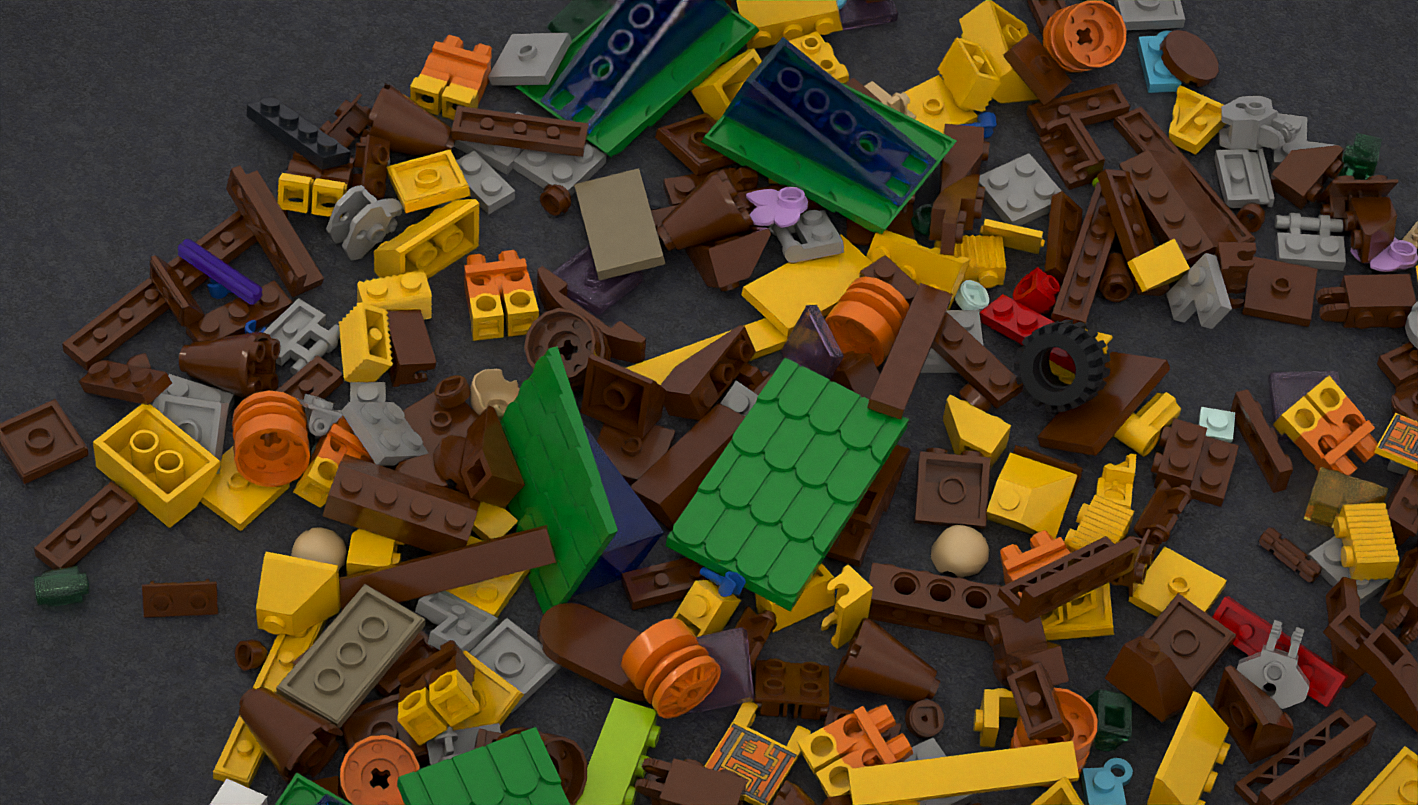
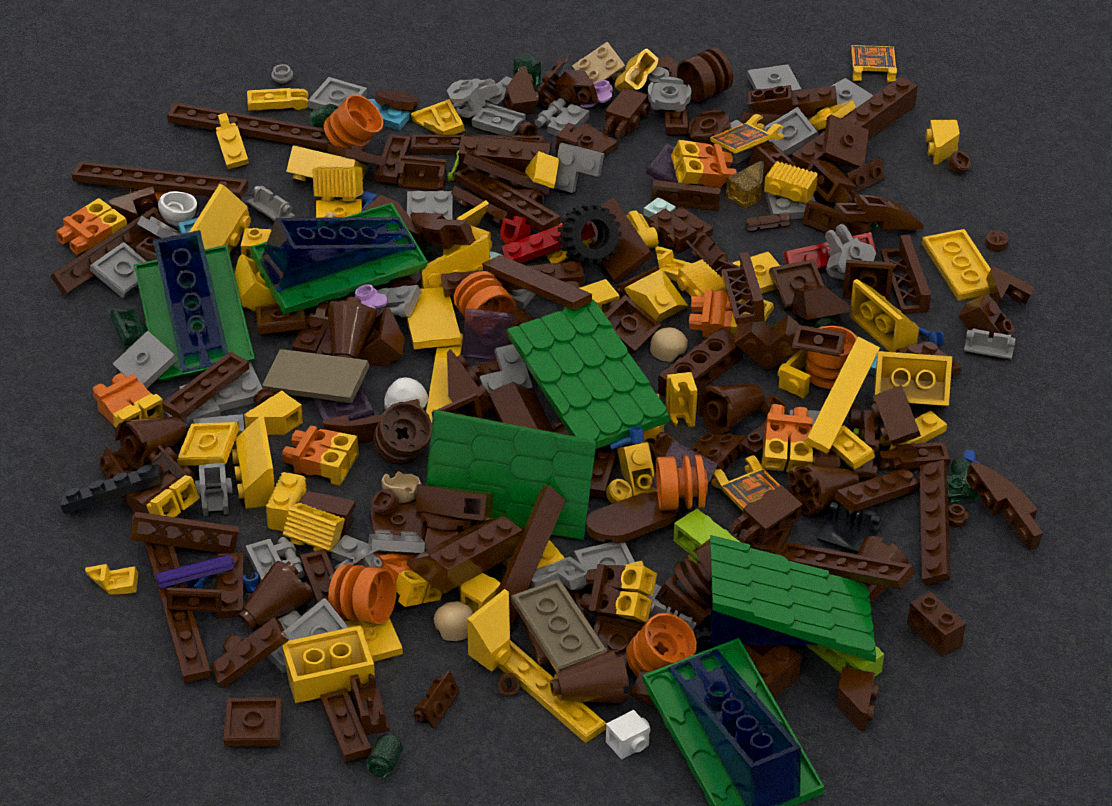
camera: 55 degrees left, 10 degrees down
(128, 534) = (368, 705): none -> reddish brown hinge
(177, 212) = (115, 581): none -> yellow slope
(530, 220) = (279, 412): none -> yellow slope
(645, 615) = (618, 490): none -> yellow tile
(659, 326) = (405, 390): none -> white hat
(890, 37) = (272, 208): none -> light grey hinge

